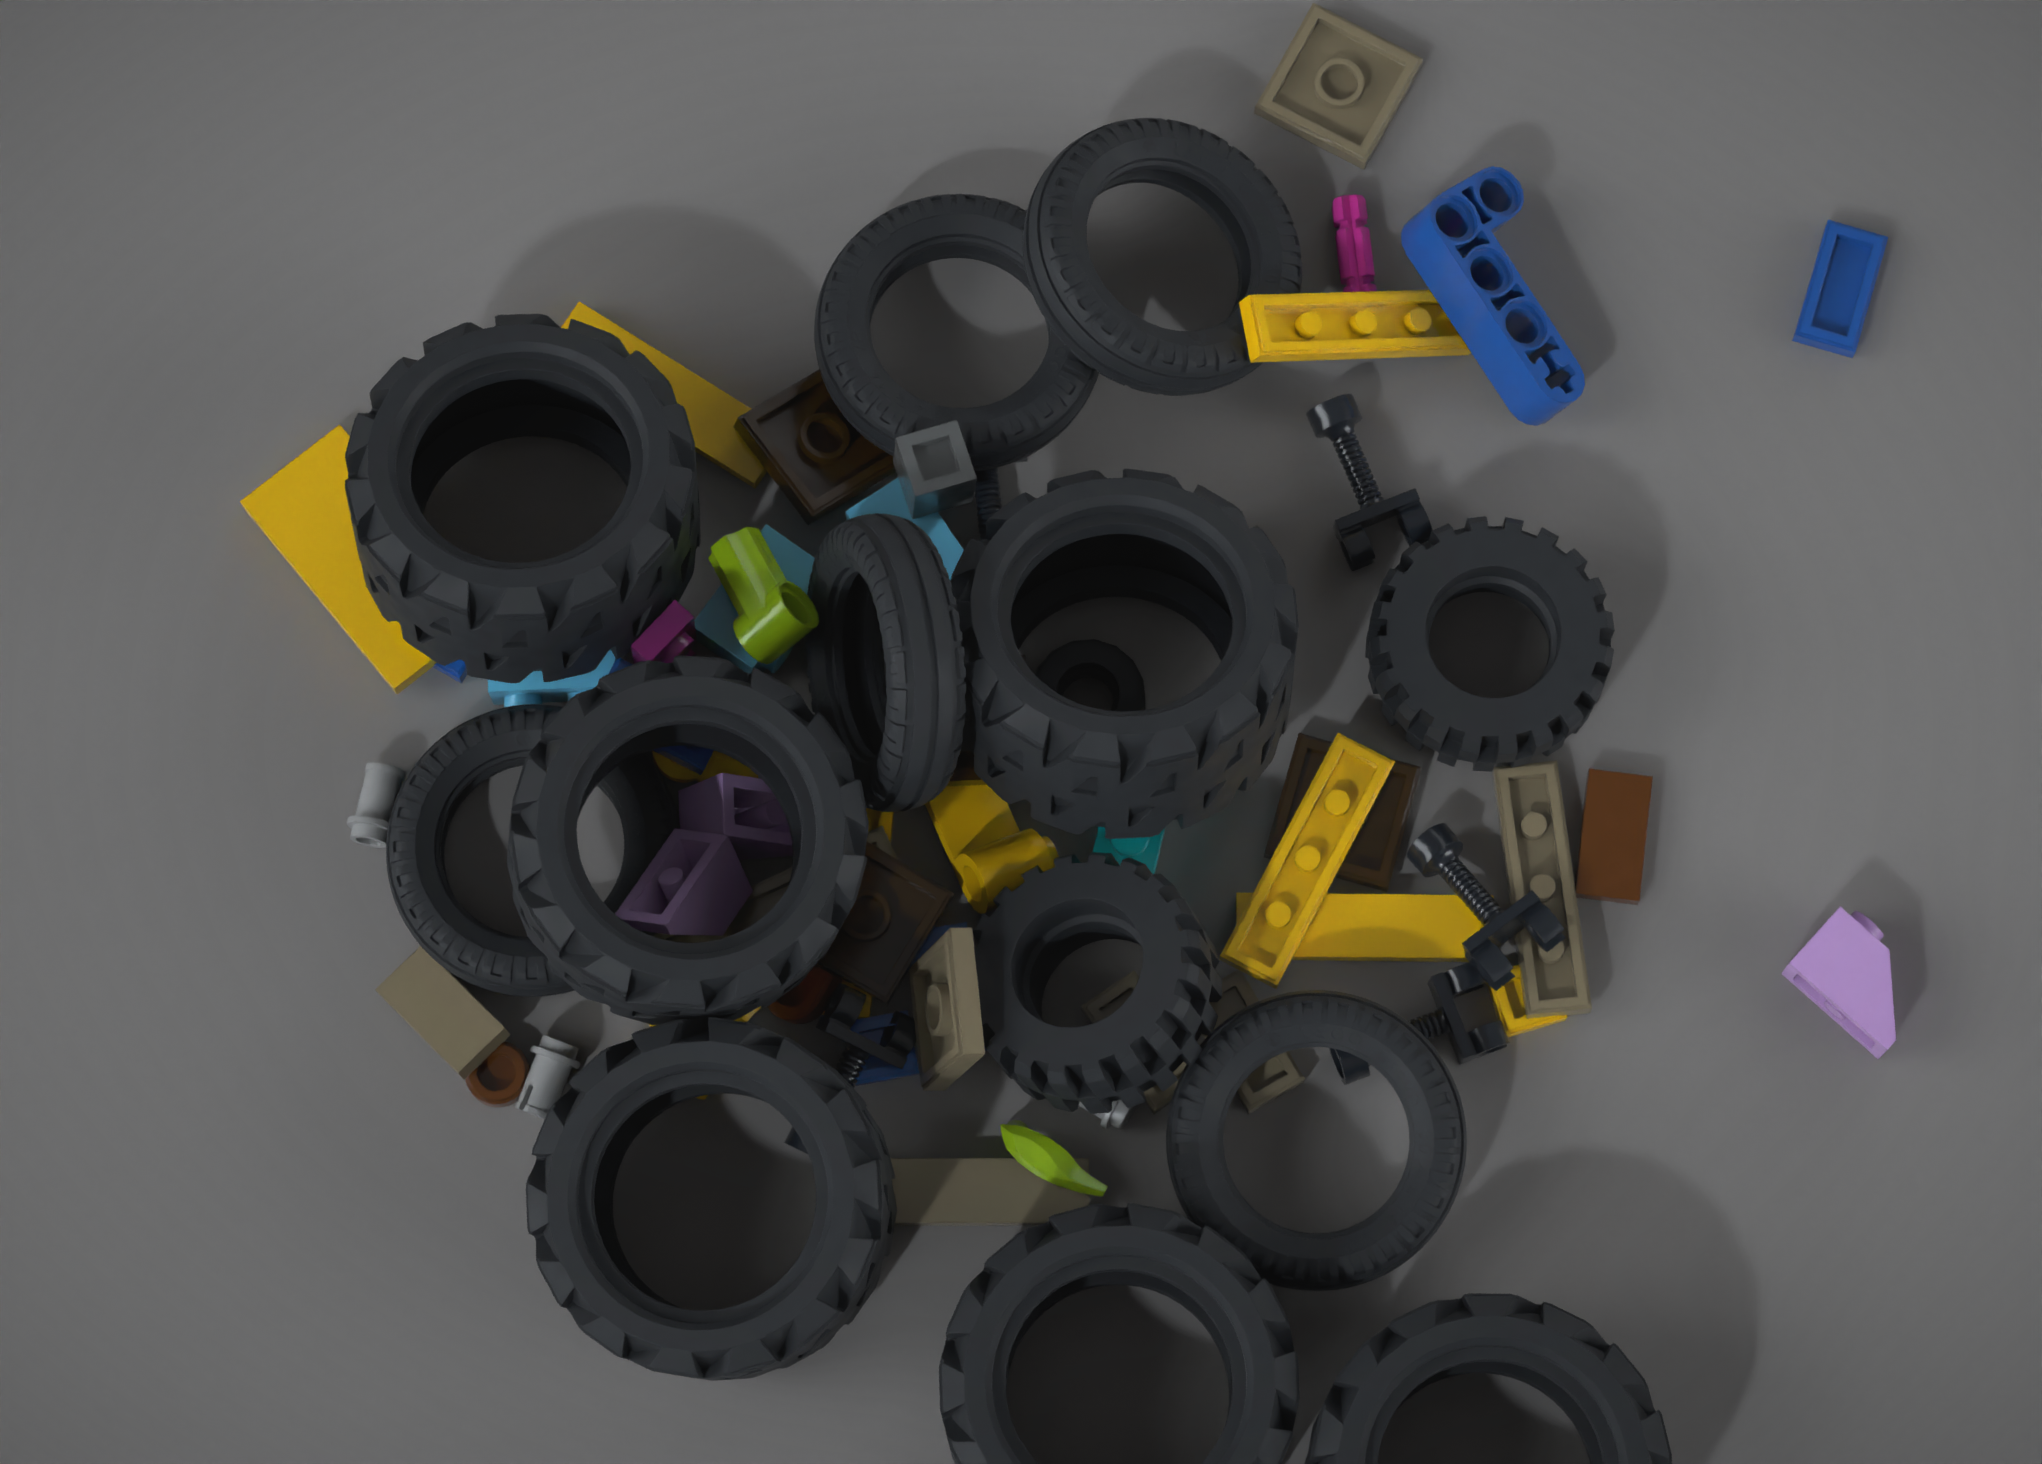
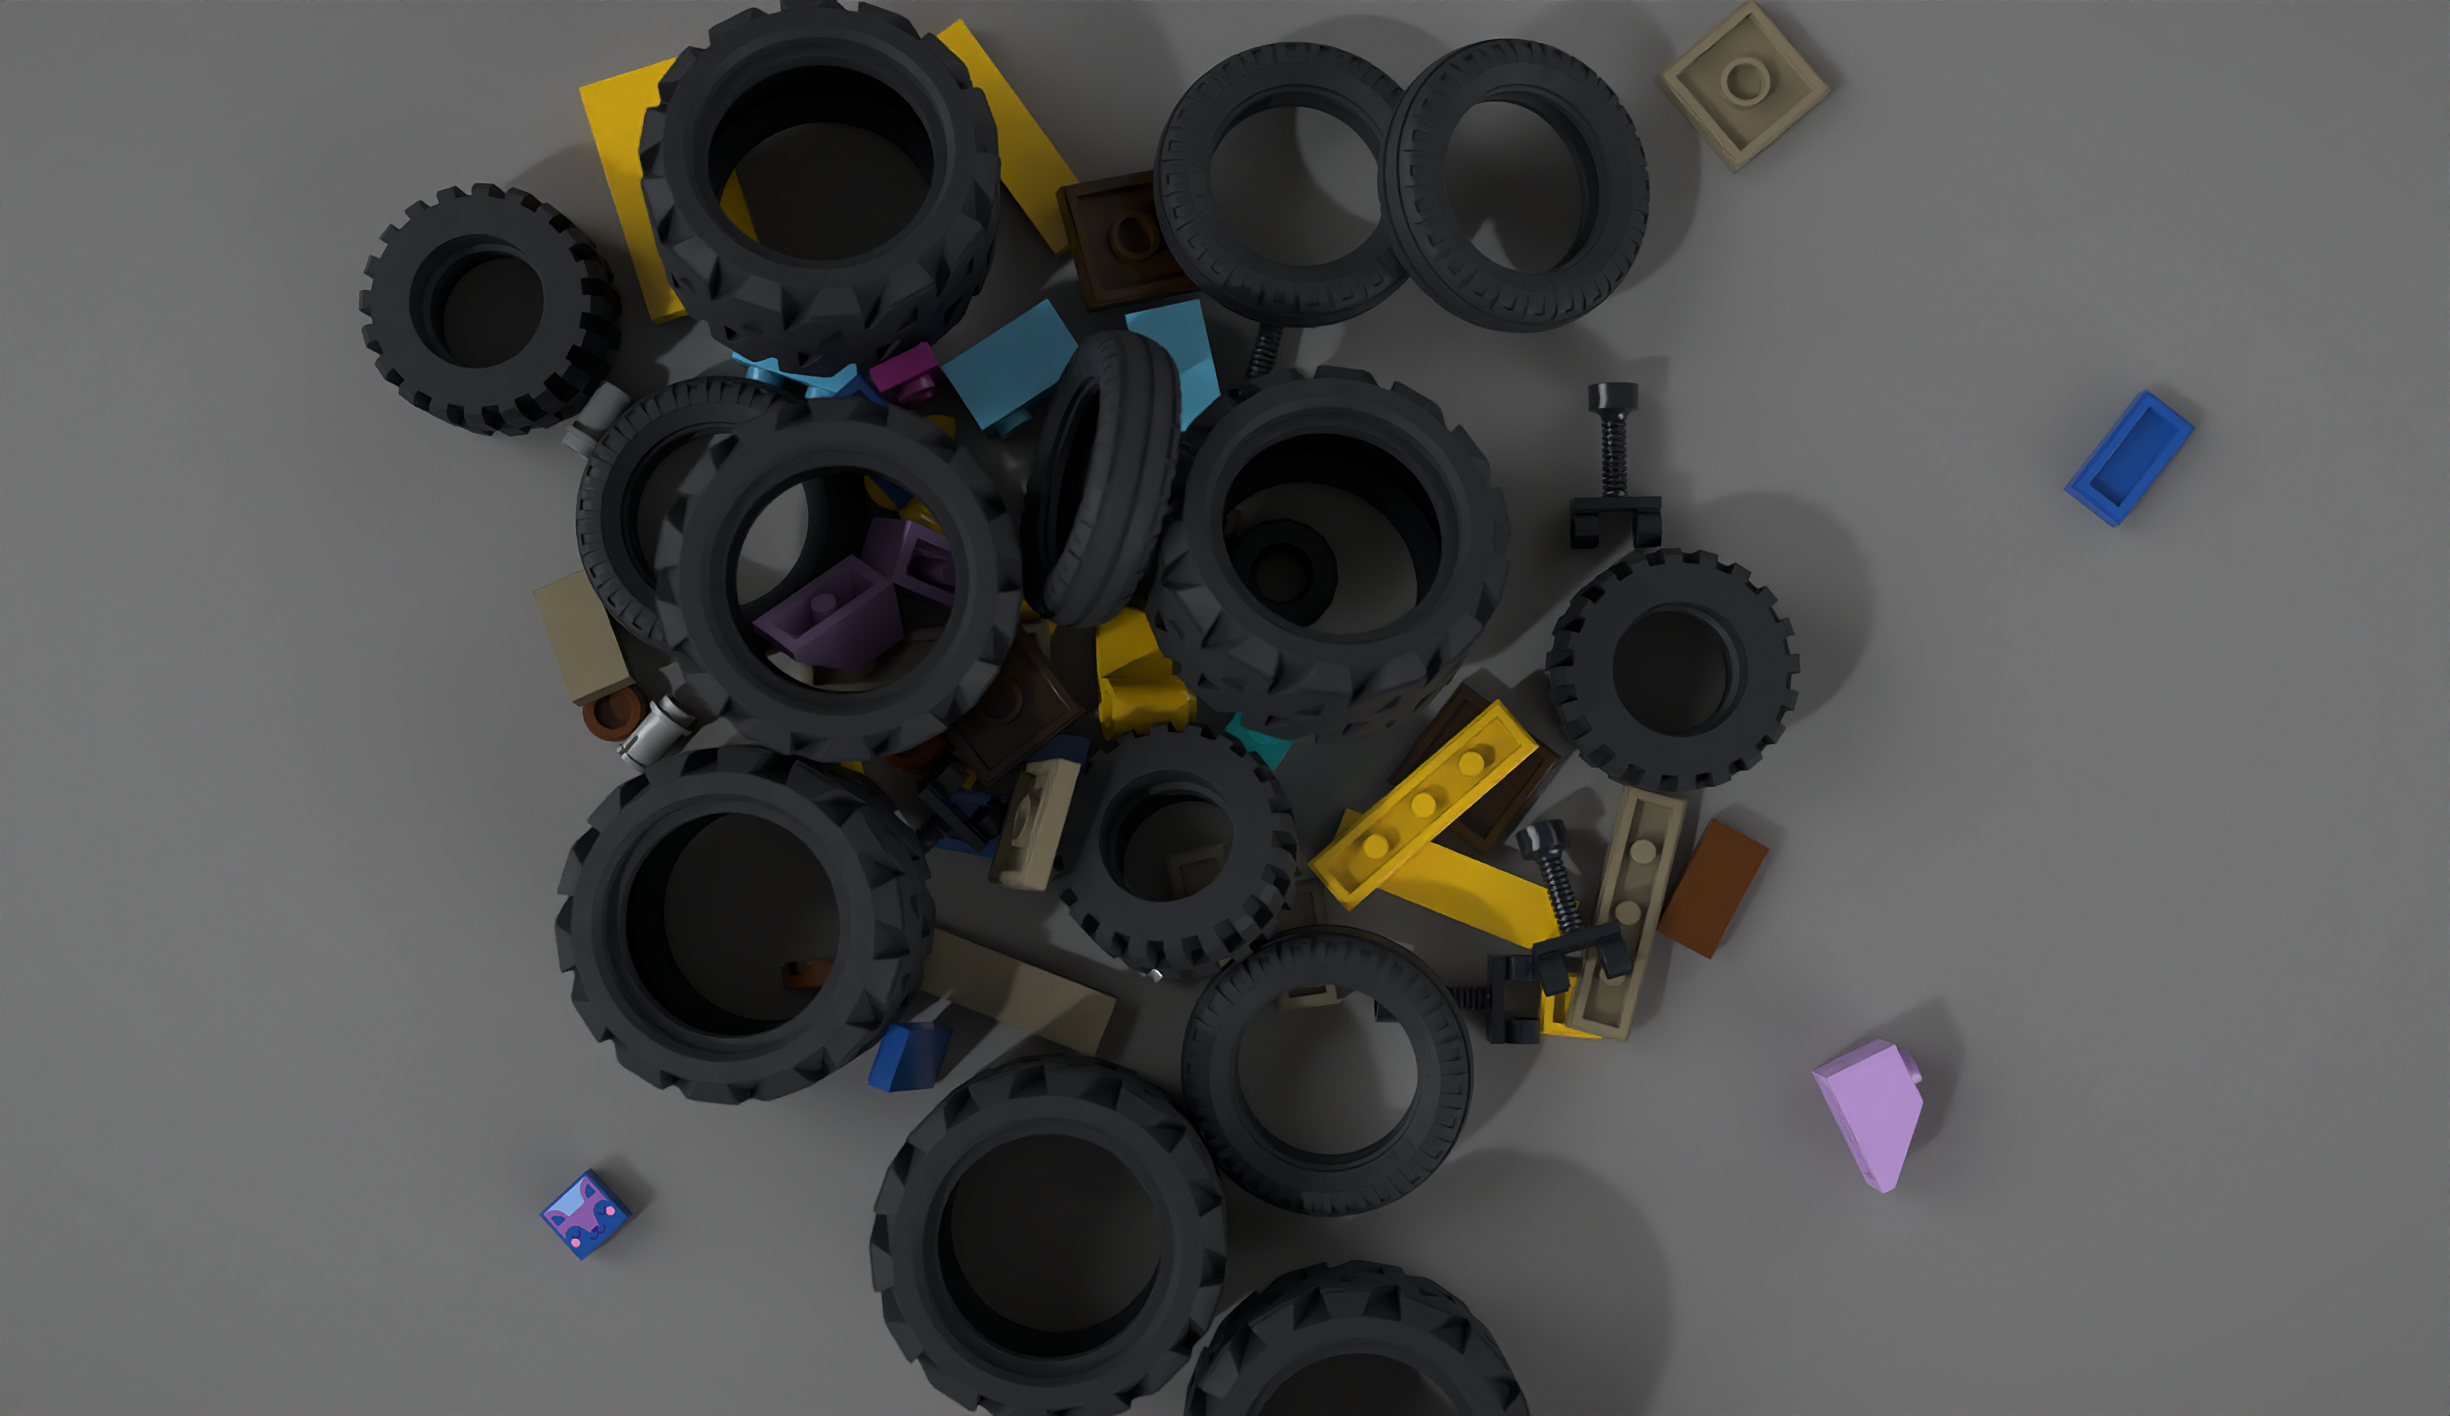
camera: 20 degrees right, 10 degrees up
(197, 668) = (428, 261): none -> black tyre
(769, 608) = (1015, 383): lime piece -> none
(782, 1250) = (806, 972): none -> reddish brown tile
(914, 1278) = (909, 1056): none -> blue tile
(934, 469) = (1220, 308): dark grey panel -> none
(1048, 1159) = (1076, 985): lime bar -> none
(1347, 326) = (1669, 322): yellow tile -> none
(1353, 243) = (1693, 253): dark pink axle -> none
(1487, 297) = (1803, 342): blue beam -> none

